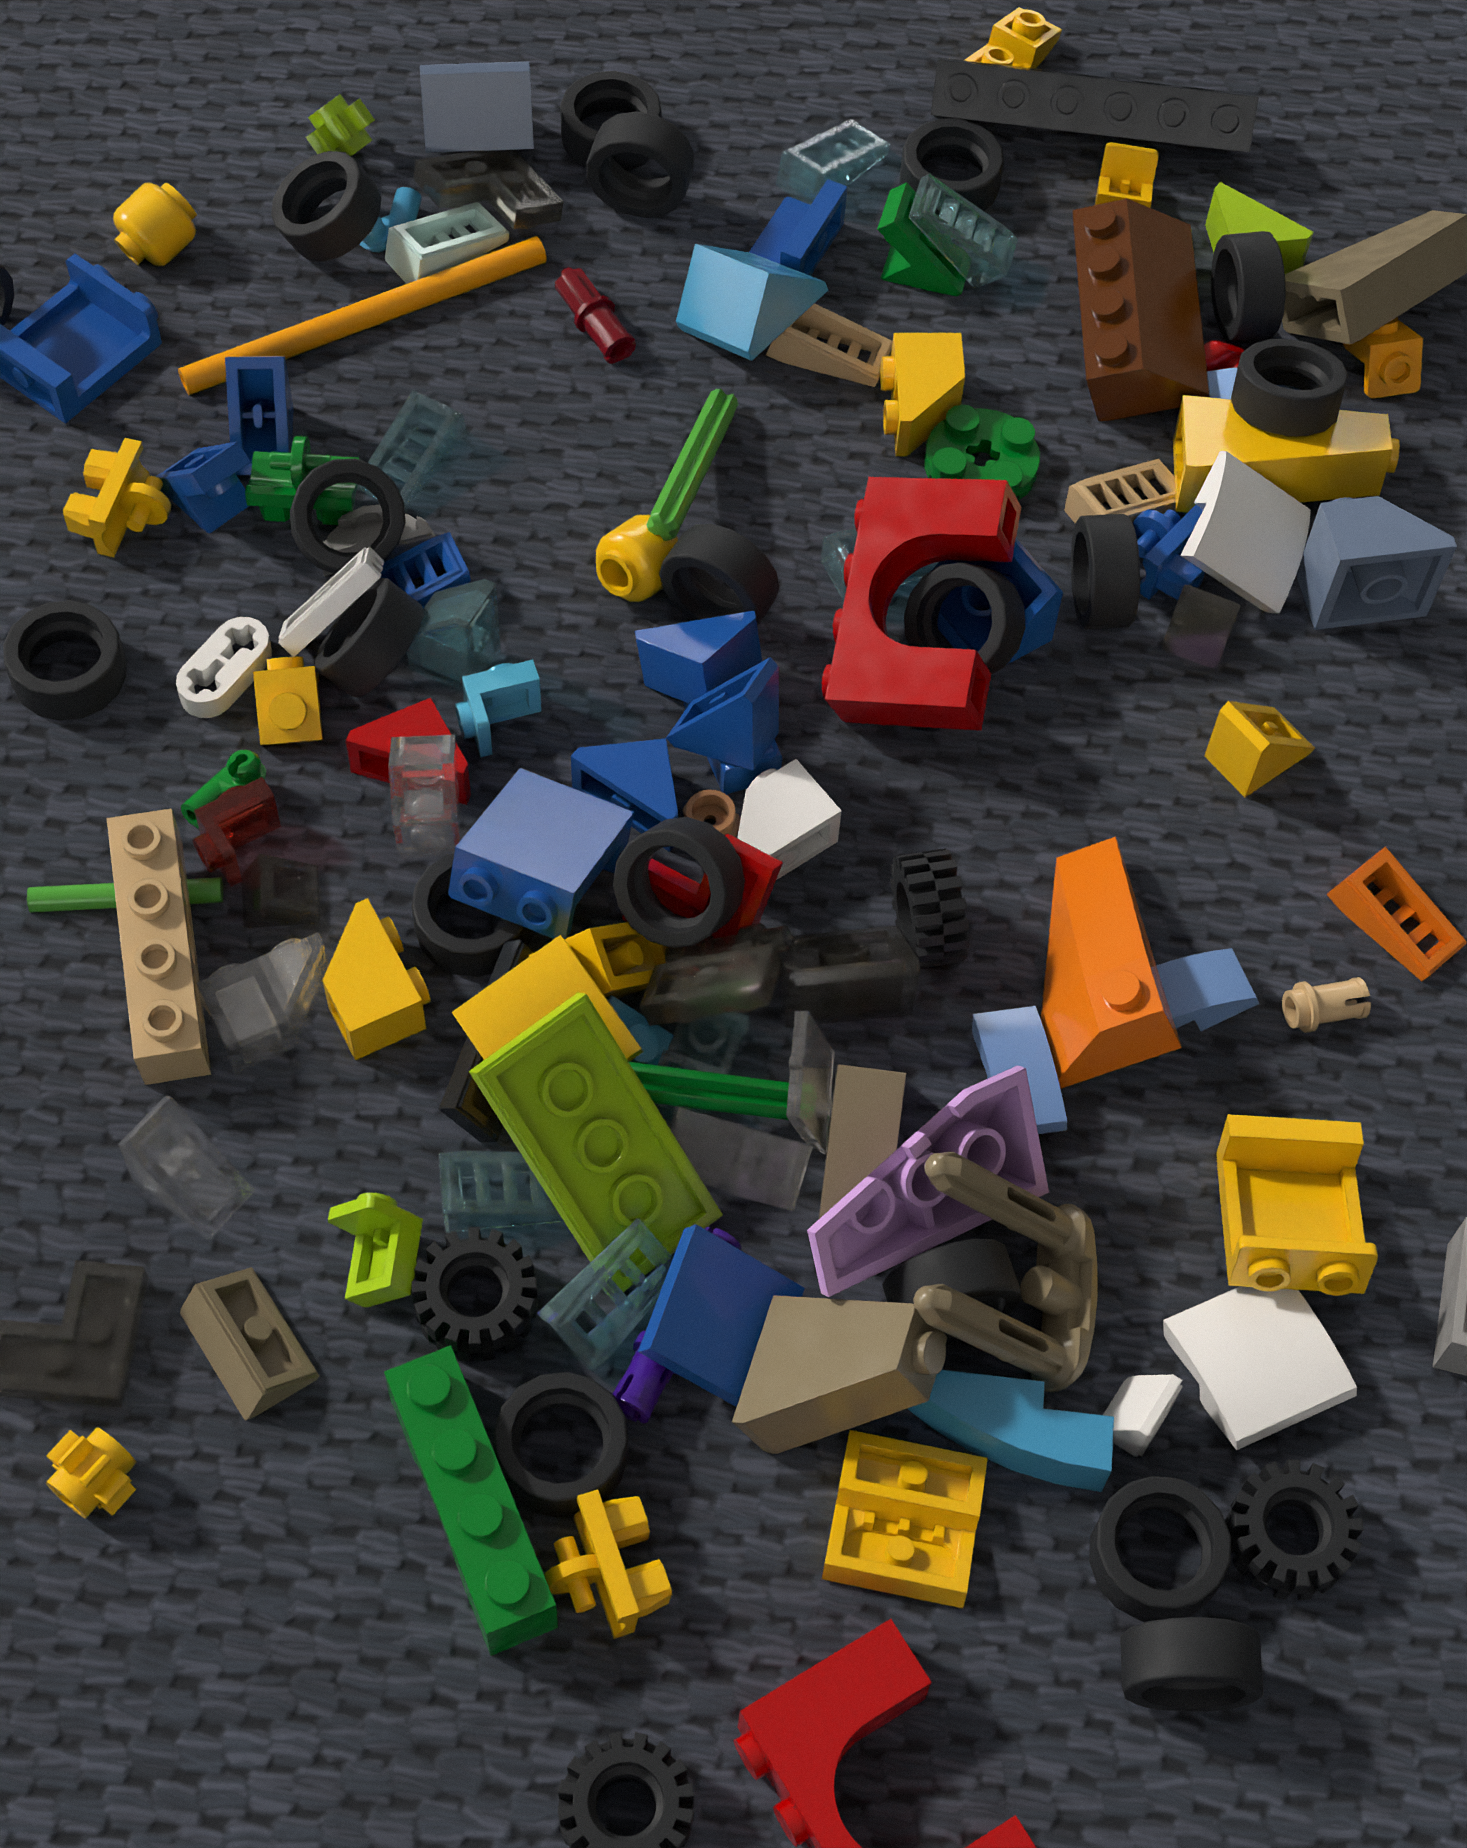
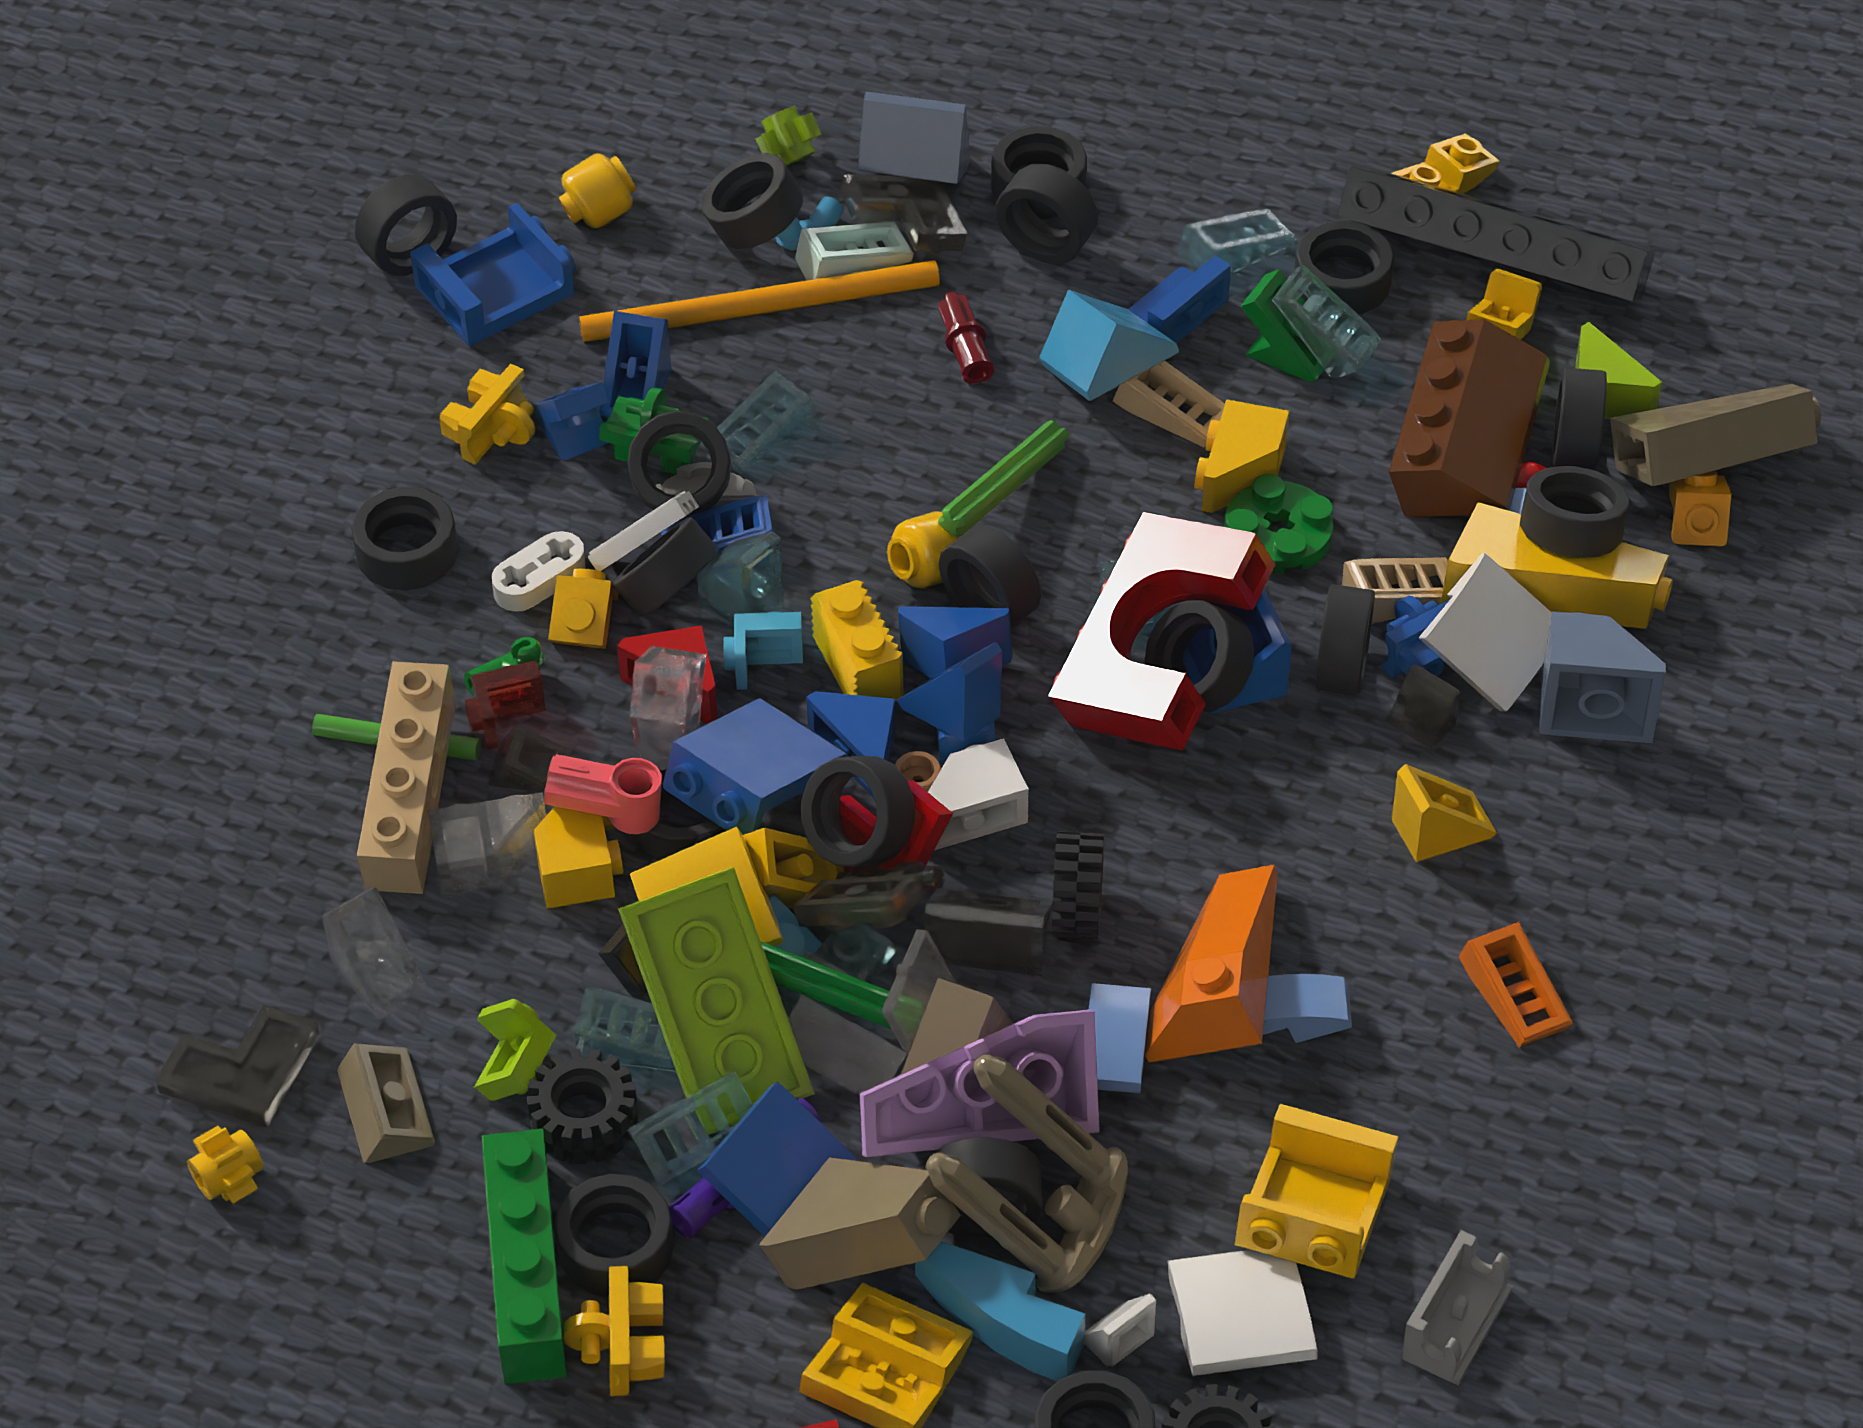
camera: 20 degrees right, 10 degrees down
(390, 917) = (622, 792): none -> coral piece
(599, 681) = (857, 642): none -> yellow brick
(1309, 1006) = (1412, 1042): tan pin -> none

